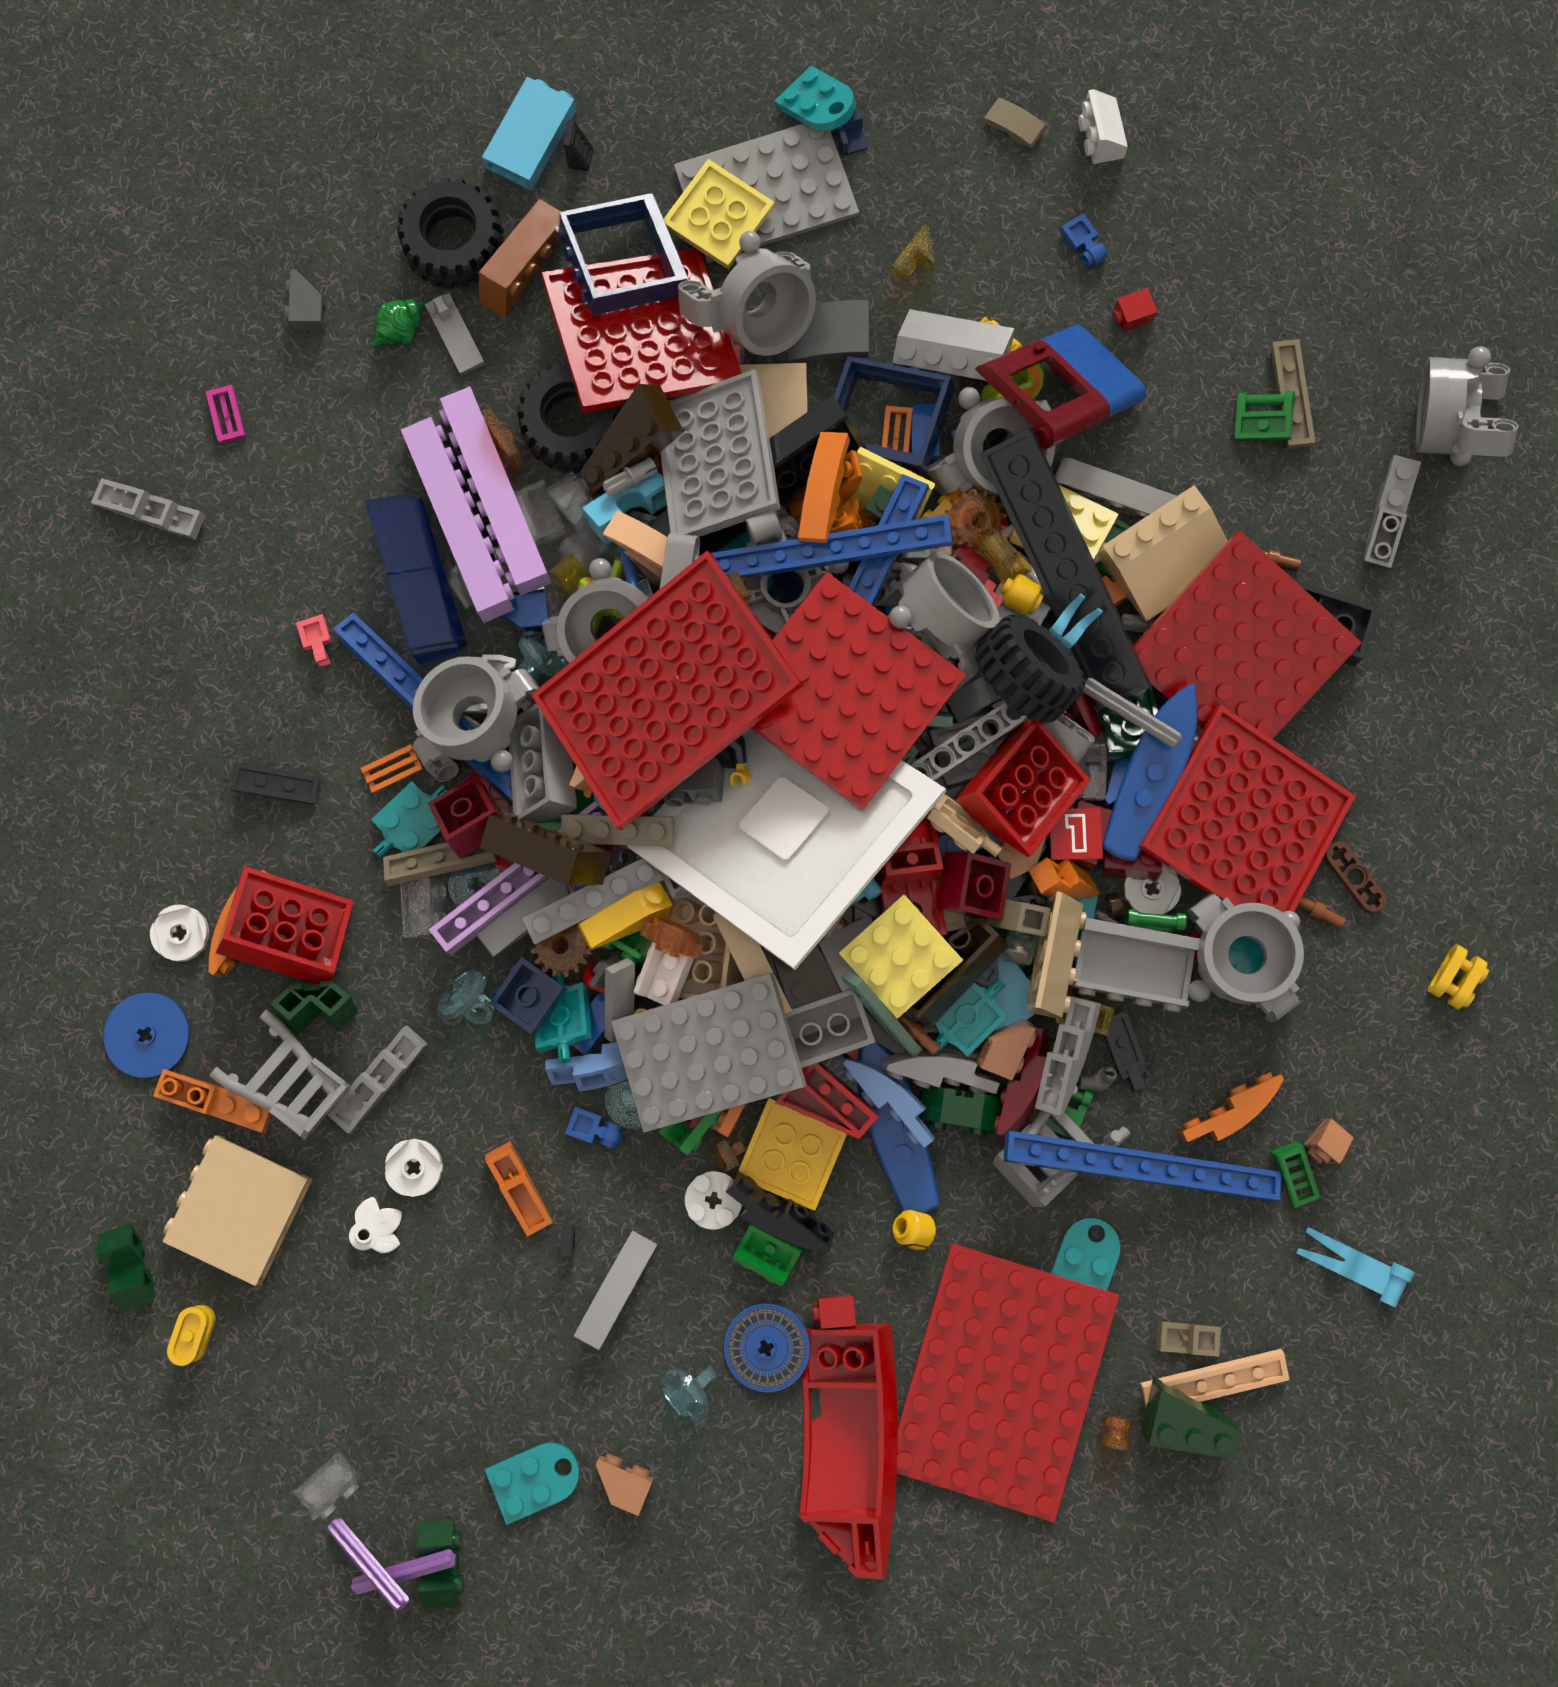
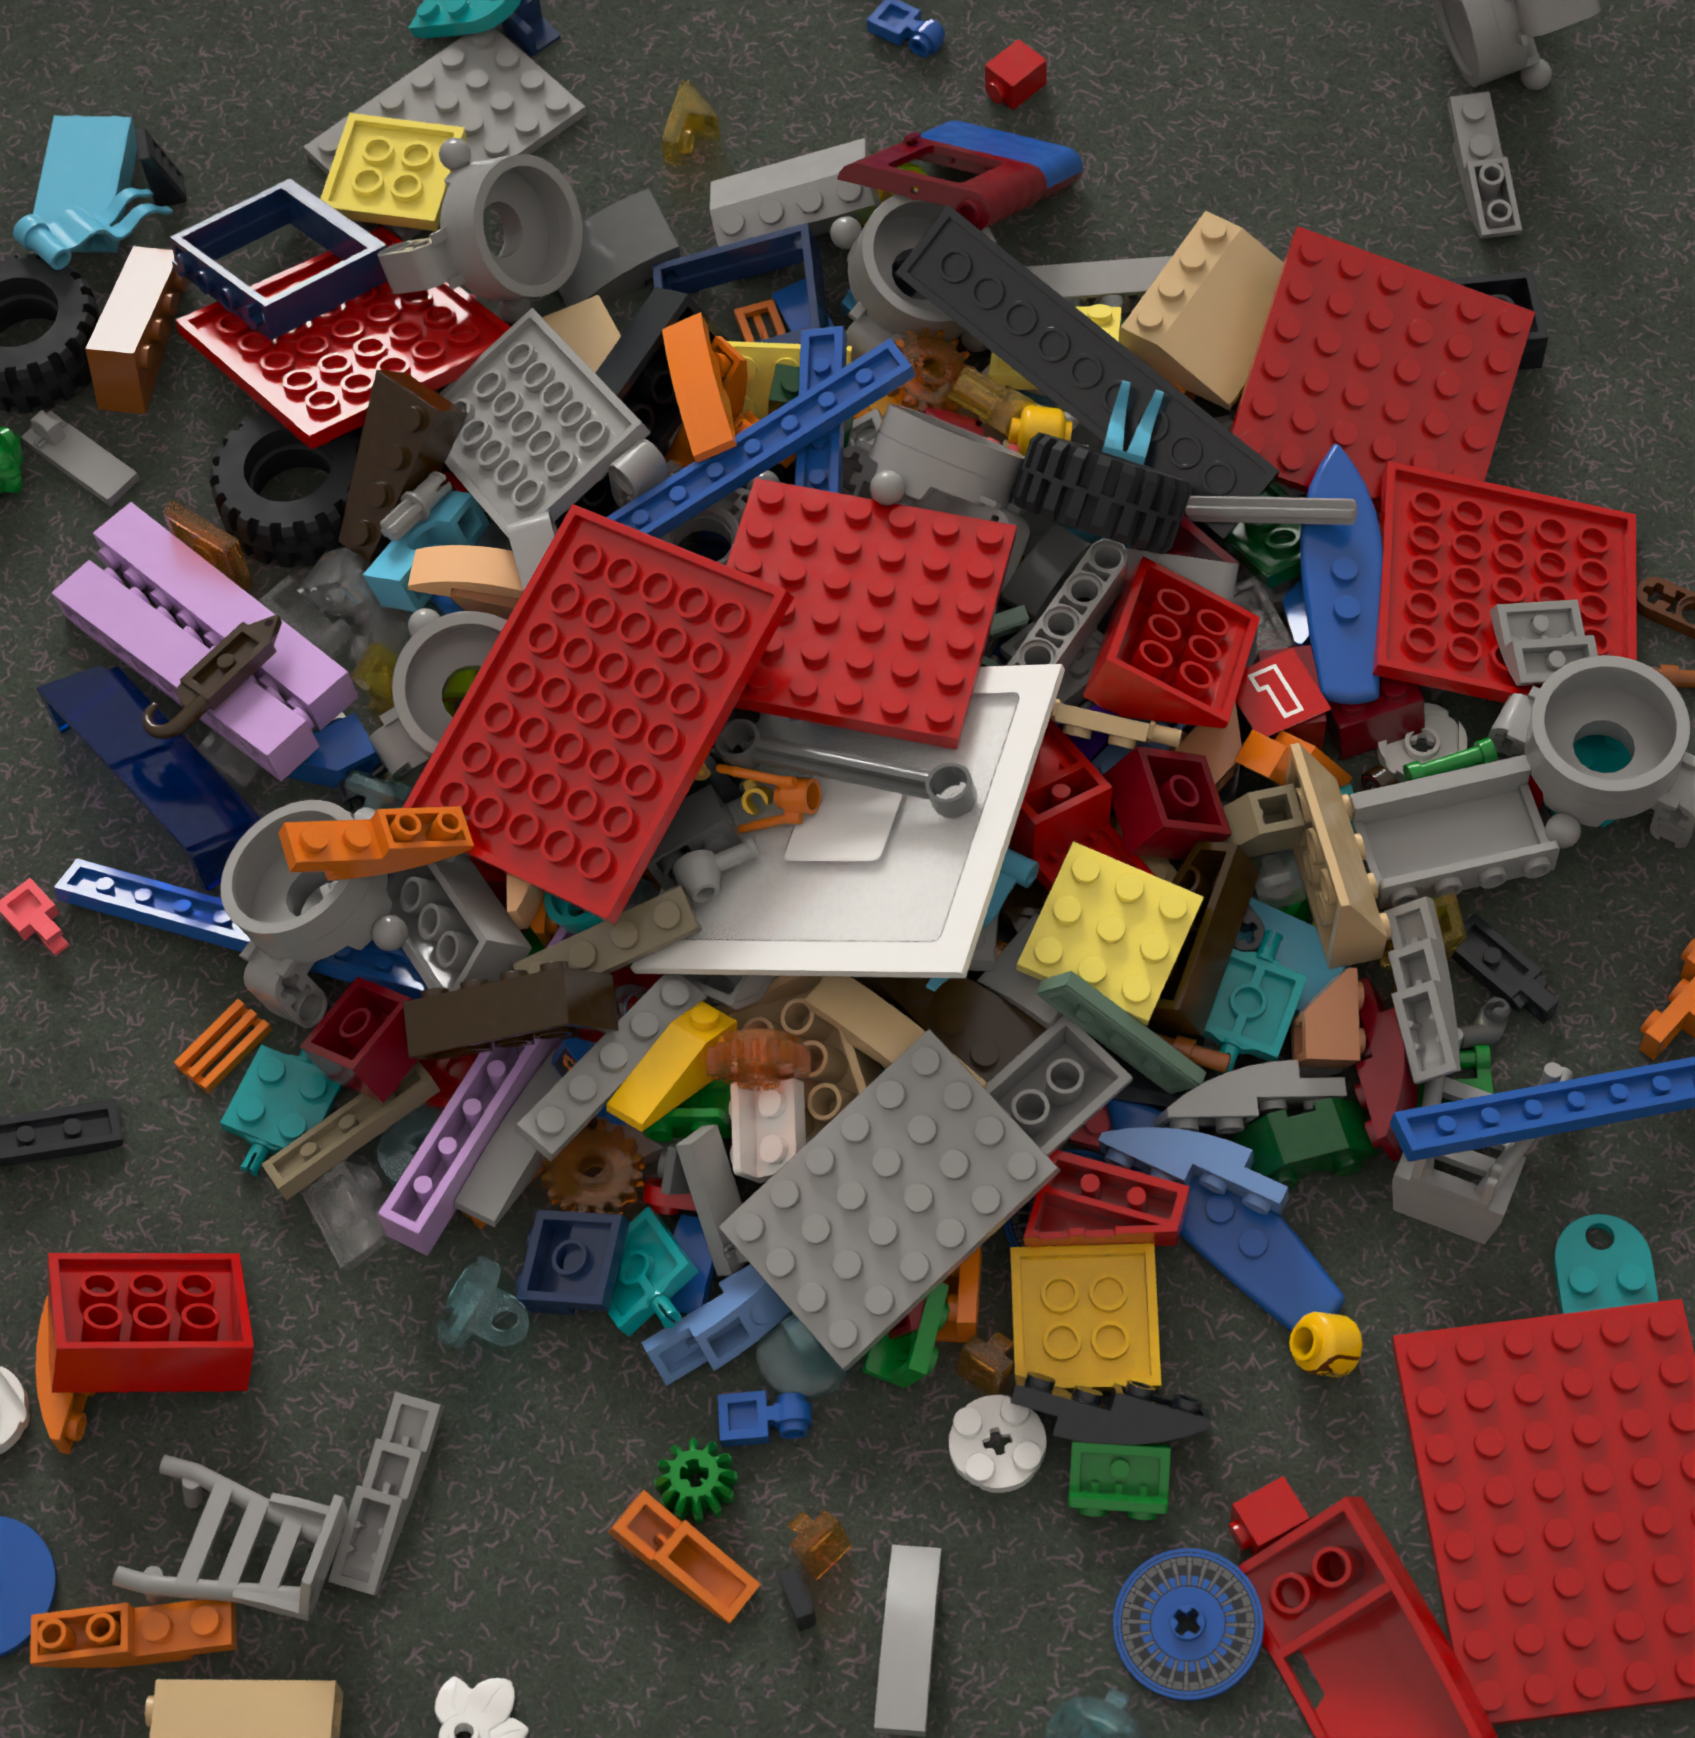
camera: 20 degrees left, 20 degrees down
(303, 1003) = (258, 1407): dark green brick -> none
(397, 1167) = (488, 1575): white plate -> none
(469, 544) = (217, 675): none -> dark brown plate
(507, 718) = (378, 845): none -> orange slope
(512, 175) = (76, 226): none -> medium azure flag
(551, 1145) = (677, 1478): none -> green gear
(592, 1214) = (818, 1542): none -> clear orange tile
(687, 811) = (701, 869): none -> light grey bar
(761, 790) = (791, 793): none -> orange plant
(794, 797) = (848, 768): none -> dark grey piece
(1250, 869) = (1540, 638): none -> light grey slope
(1264, 424) = (1258, 134): green plate -> none
(1291, 377) = (1277, 90): dark tan plate -> none

